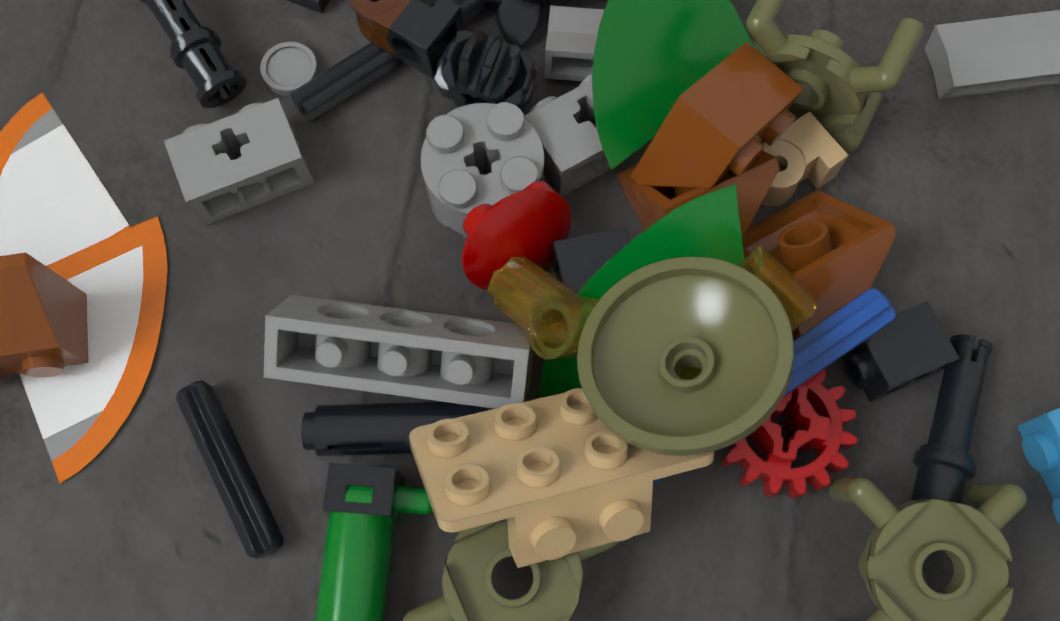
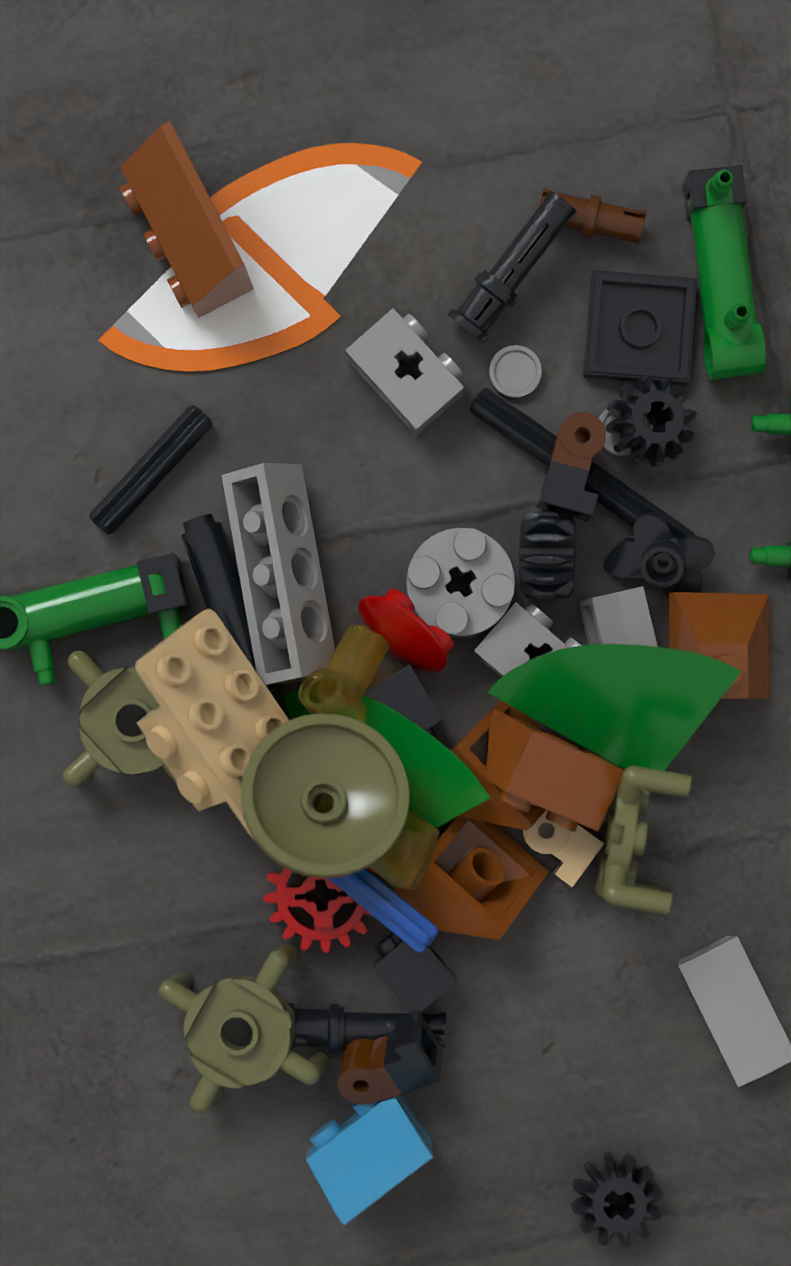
camera: 70 degrees right, 15 degrees up
(1009, 406) = (391, 1063): none -> leg

